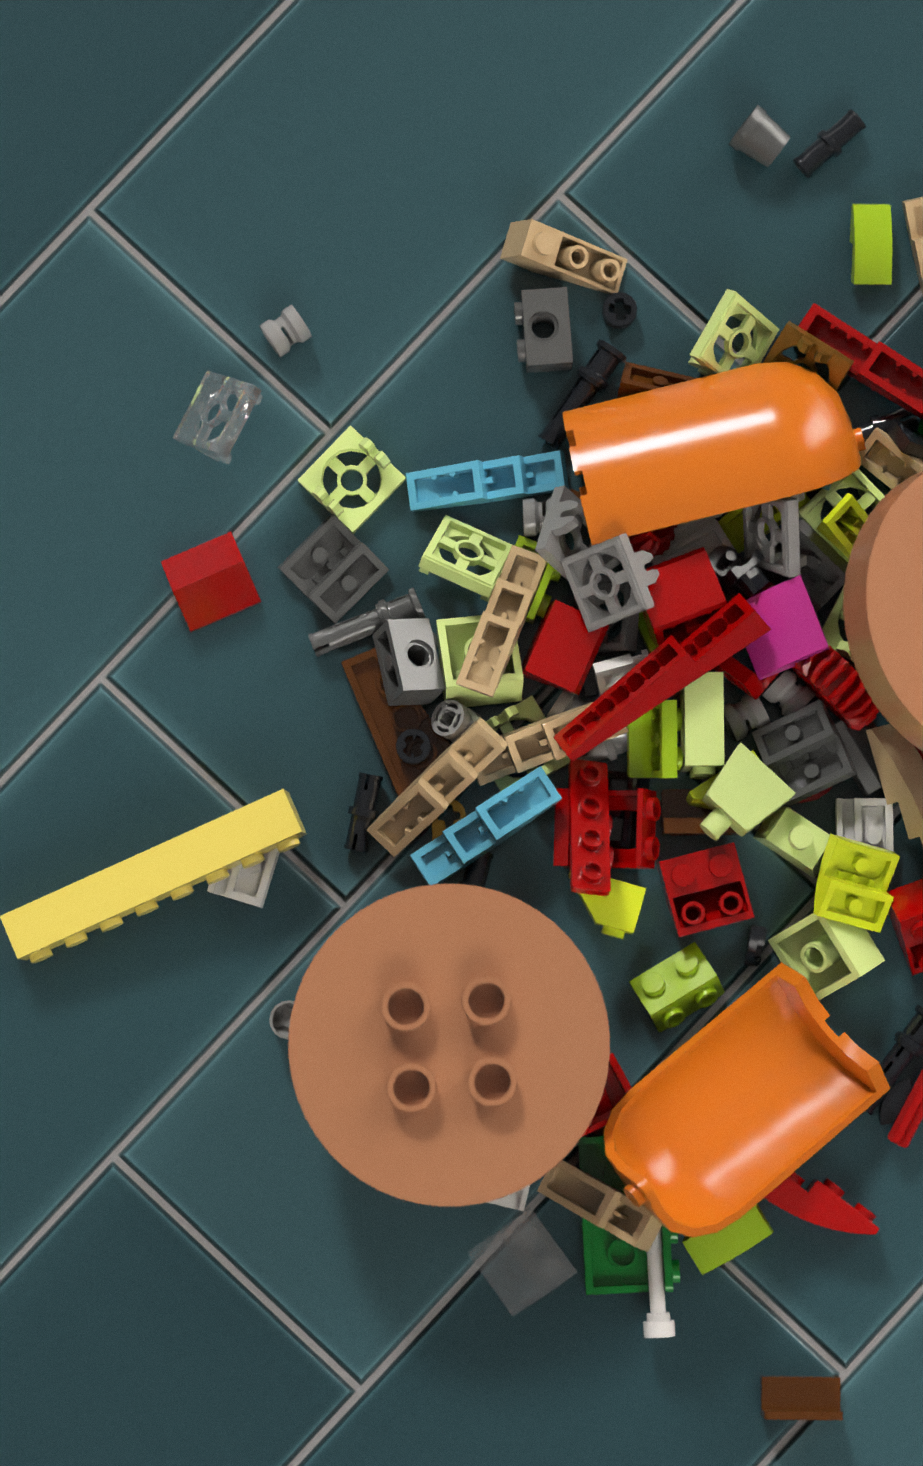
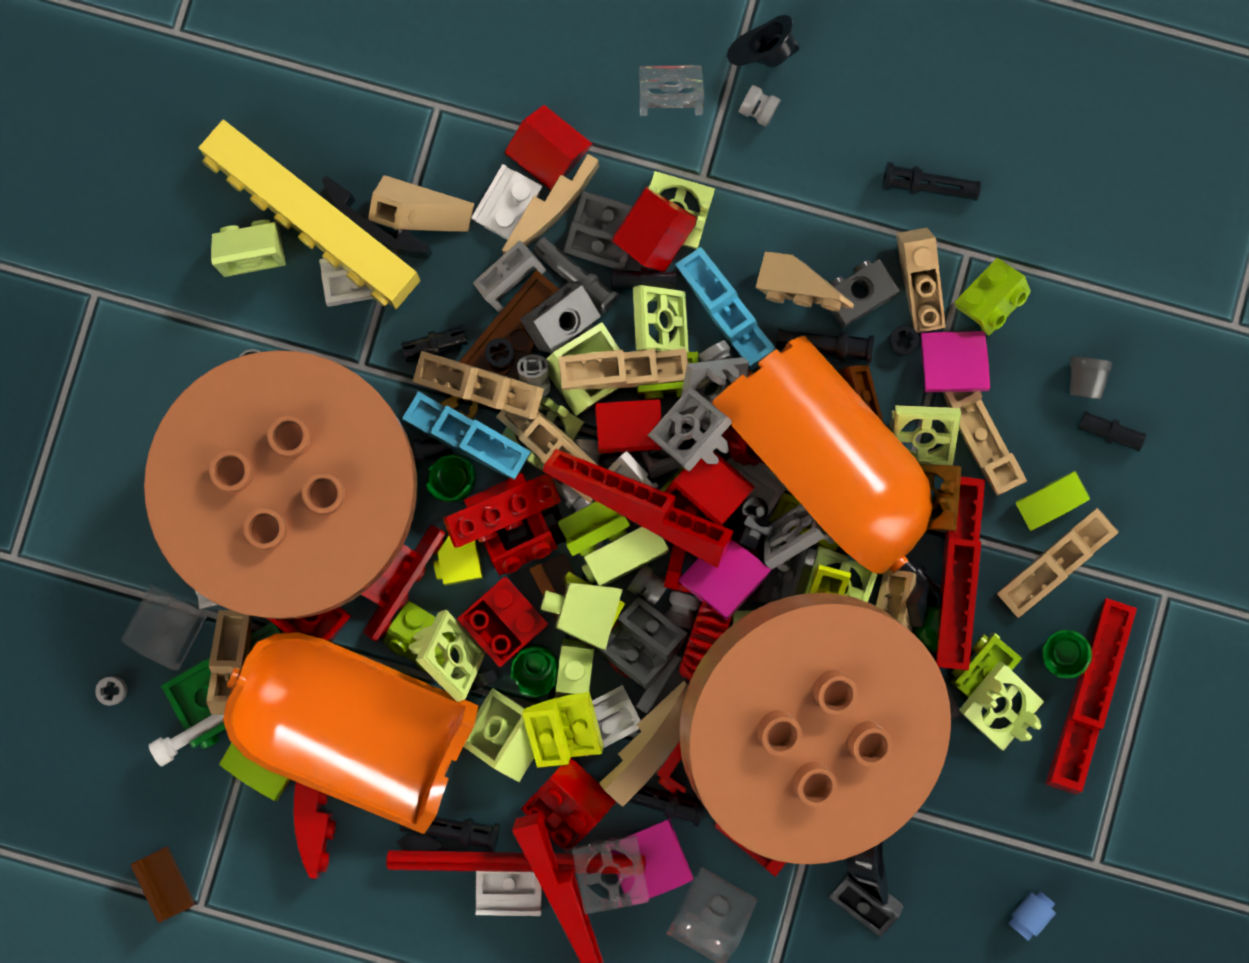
camera: 60 degrees right, 0 degrees up
(155, 960) = (247, 249): none -> yellowish green slope
(207, 754) = (417, 208): none -> tan slope
(220, 288) = (766, 44): none -> black piece
(240, 788) = (405, 244): none -> black slope
(248, 656) = (505, 201): none -> white plate
(283, 624) = (542, 214): none -> tan slope
(330, 694) = (507, 273): none -> light grey hinge
(365, 513) = (654, 230): none -> red slope
(410, 553) = (630, 278): none -> black pin
(457, 211) = (968, 188): none -> black pin
(494, 393) = (791, 279): none -> tan slope
(521, 868) = (451, 478): none -> green hair
(551, 1357) = (105, 682): none -> light grey bush
(615, 989) = (393, 586): none -> red bracket
(620, 190) = (994, 296): none -> lime bracket
(670, 268) = (955, 361): none -> dark pink slope
(740, 969) = (453, 677): none -> yellowish green piece
(763, 282) = (985, 442): none -> tan slope
(775, 883) = (535, 670): none -> green hair

